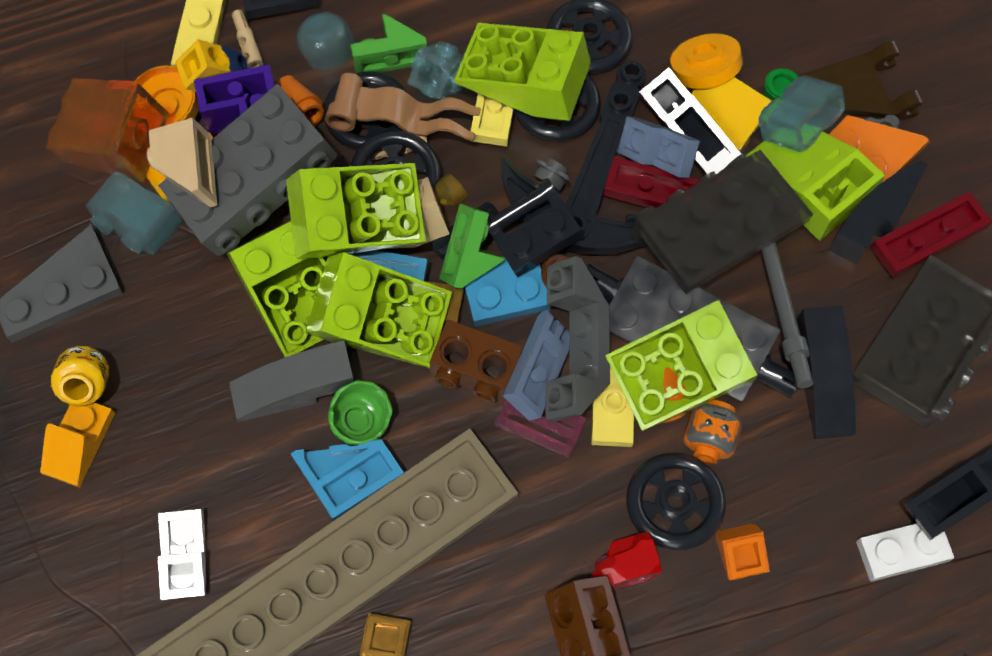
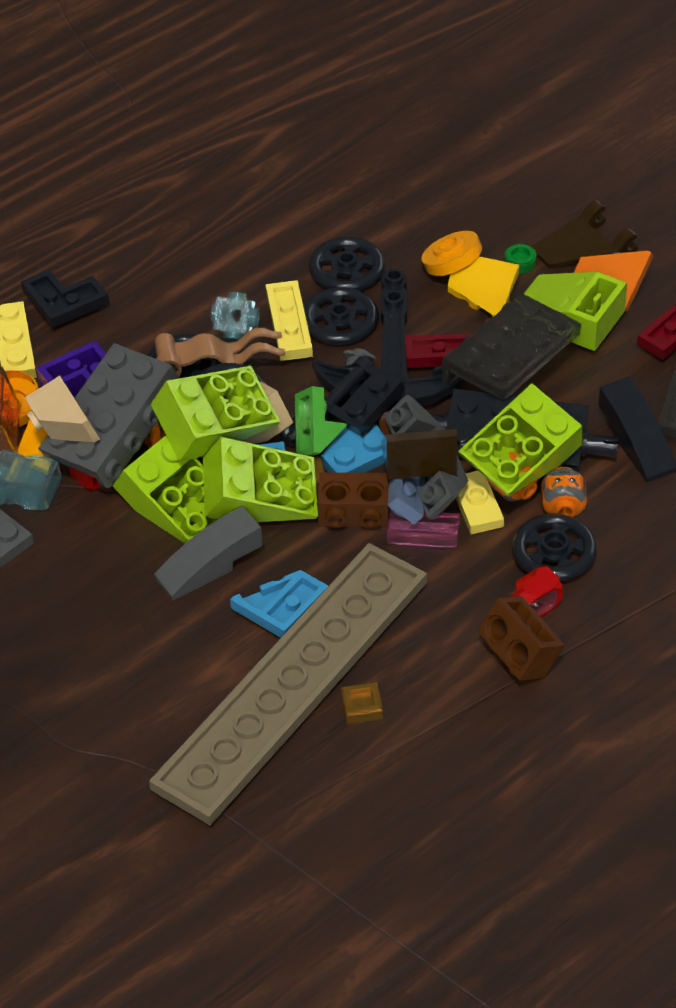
camera: 15 degrees left, 20 degrees down
(74, 444) = (43, 647): light orange slope -> none
(80, 376) = (30, 596): yellow head -> none
(182, 554) = (169, 693): white slope -> none
(206, 60) = (36, 353): yellow leg -> none
(246, 40) = (55, 339): tan pin -> none
(325, 40) = (126, 323): clear light blue hair -> none
(359, 413) = (274, 555): bright green hair -> none
(388, 53) = (188, 312): bright green slope -> none
(449, 191) = (285, 391): clear yellow hinge -> none
(526, 68) = (309, 291): lime slope -> none
(561, 340) = (420, 453): none -> dark brown slope
(658, 146) = (438, 318): sand blue slope -> none
(687, 116) = (453, 295): slope -> none
(742, 551) = (622, 566): orange slope -> none
(794, 345) = (603, 413): dark grey bar -> none
(801, 113) = (543, 263): clear light blue brick -> none
(877, 213) = (631, 317): black slope -> none

